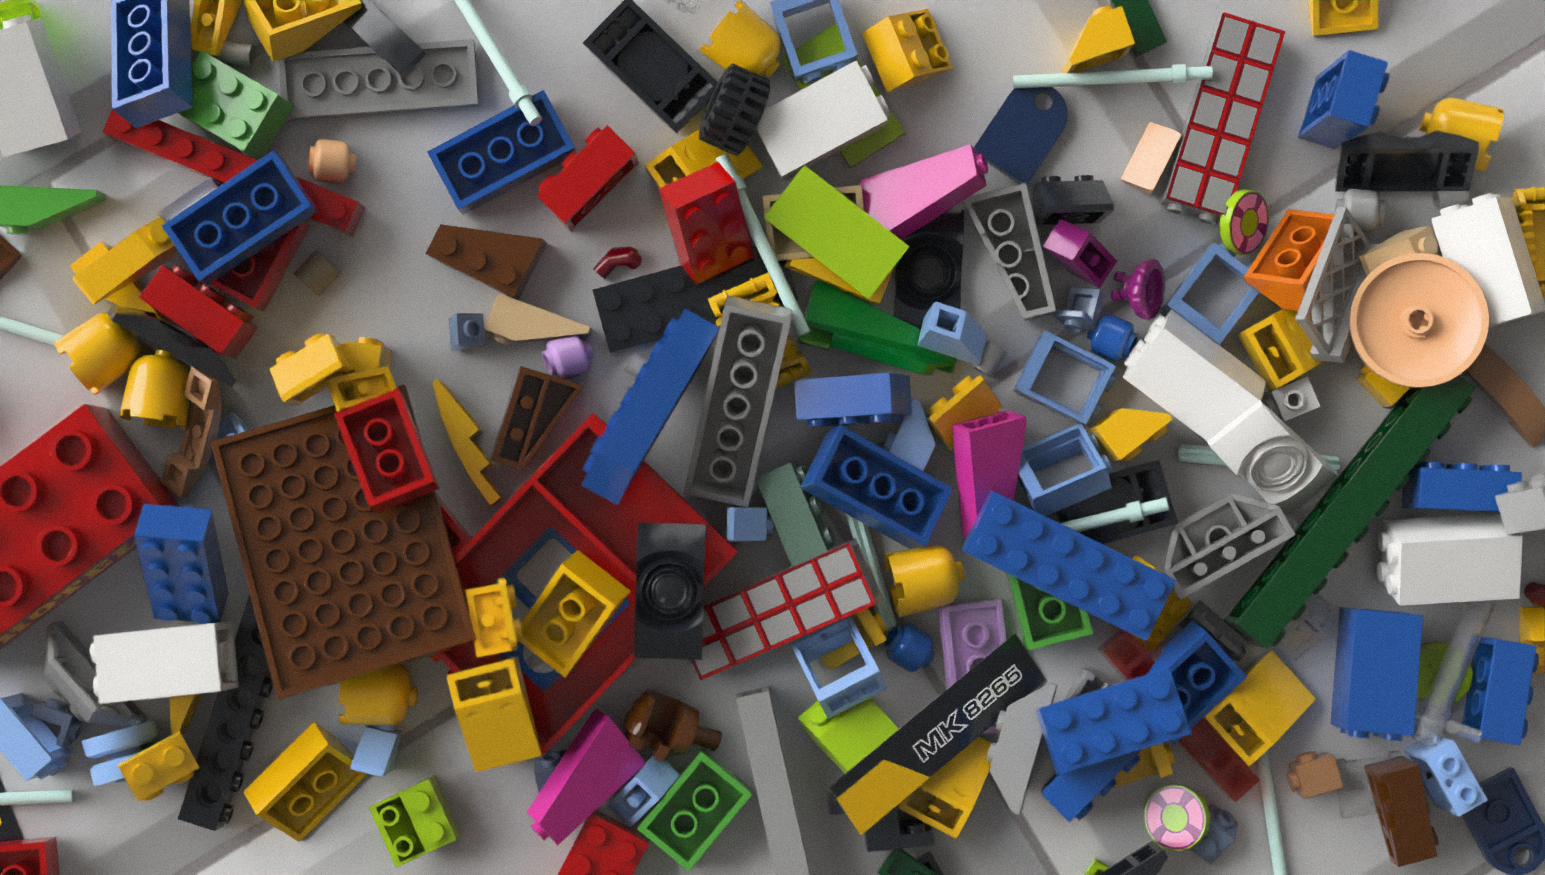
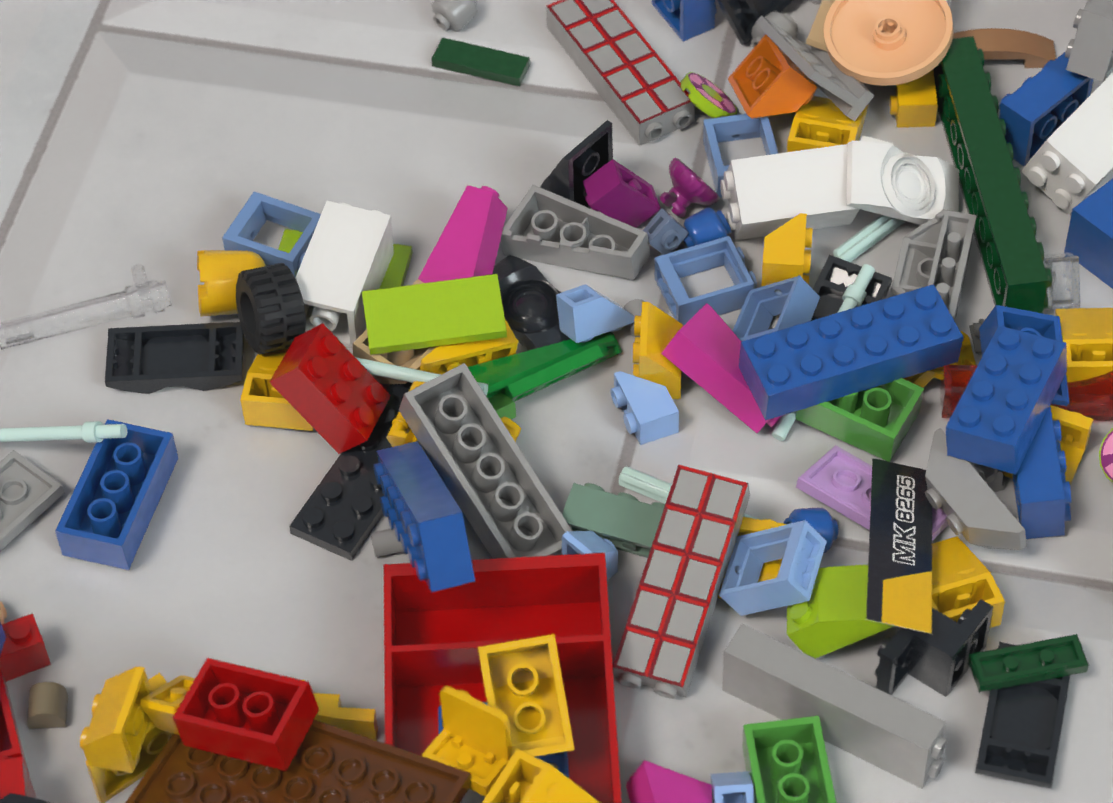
camera: 40 degrees left, 35 degrees down
(466, 331) = (218, 631): sand blue bracket -> none
(488, 256) = (179, 572): reddish brown wedge -> none
(526, 323) = (262, 587): tan slope -> none
(530, 415) = (334, 637): reddish brown wedge -> none
(567, 356) = (319, 581): lavender head -> none
(587, 177) = (203, 450): red brick -> none
(618, 257) = (282, 494): dark red arm -> none
(666, 726) = (698, 746): reddish brown piece -> none
(669, 591) = (587, 620): black slope -> none
(853, 399) = (570, 401): brick -> none
(876, 487) = (652, 439): blue brick -> none
(907, 49) = (358, 192): yellow slope -> none
(923, 578) = (770, 468): yellow cylinder -> none
(1022, 133) = (501, 172): dark blue tile -> none
(1101, 40) = (485, 81): yellow slope -> none
(1150, 157) = (596, 111): light nougat slope -> none
(1177, 74) = (557, 57): light aqua bar -> none

